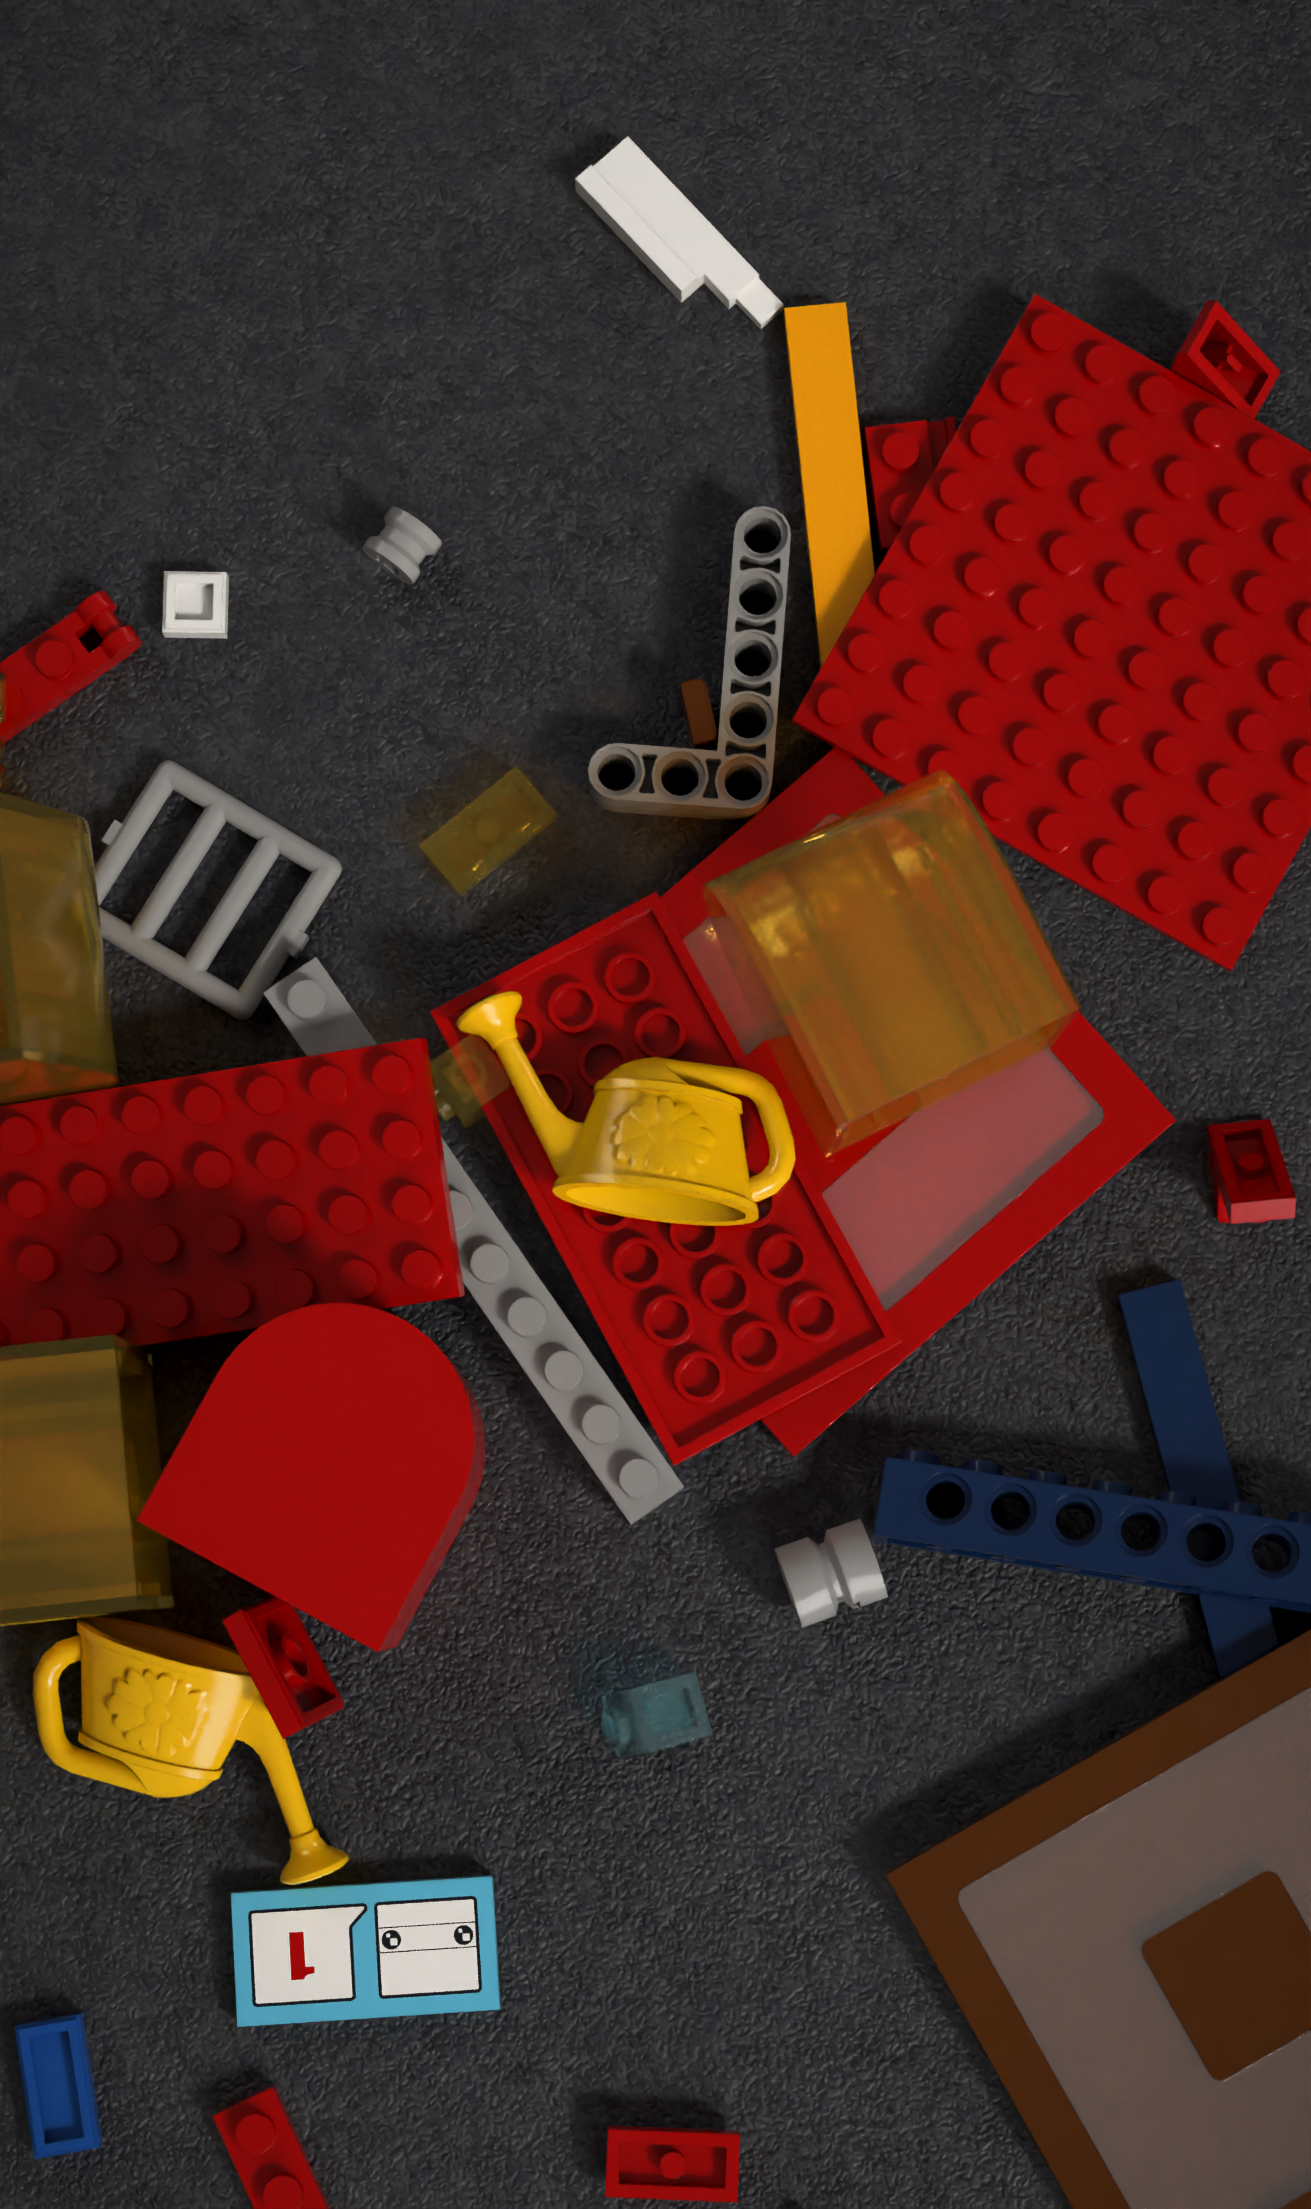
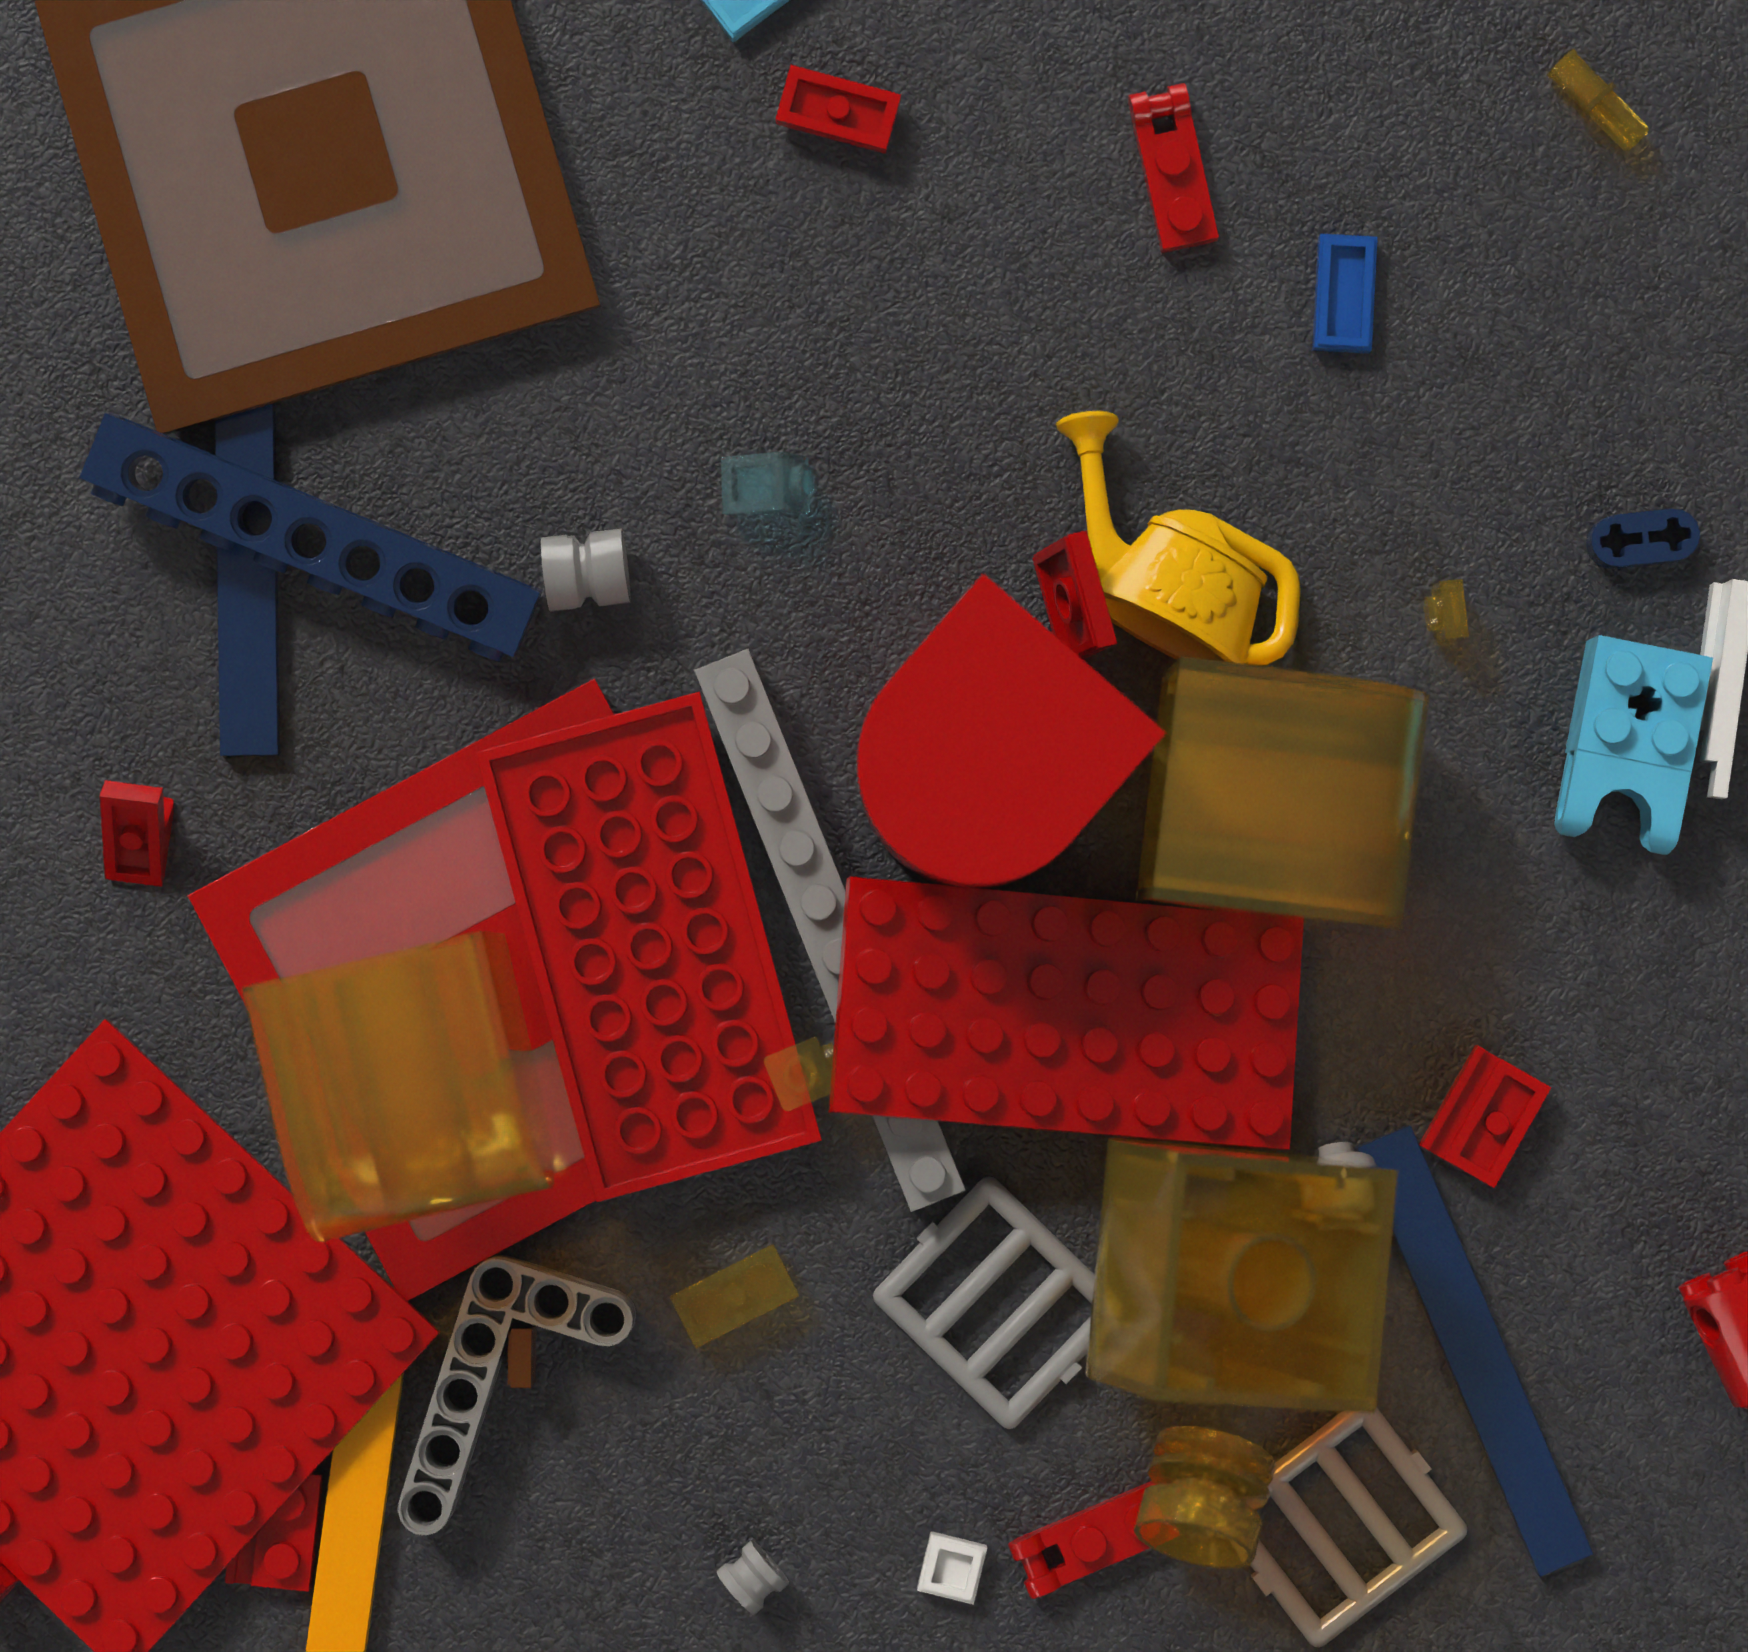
camera: 165 degrees left, 5 degrees up
(365, 1950) = (1059, 345): tile -> none
(656, 1134) = (652, 982): yellow piece -> none

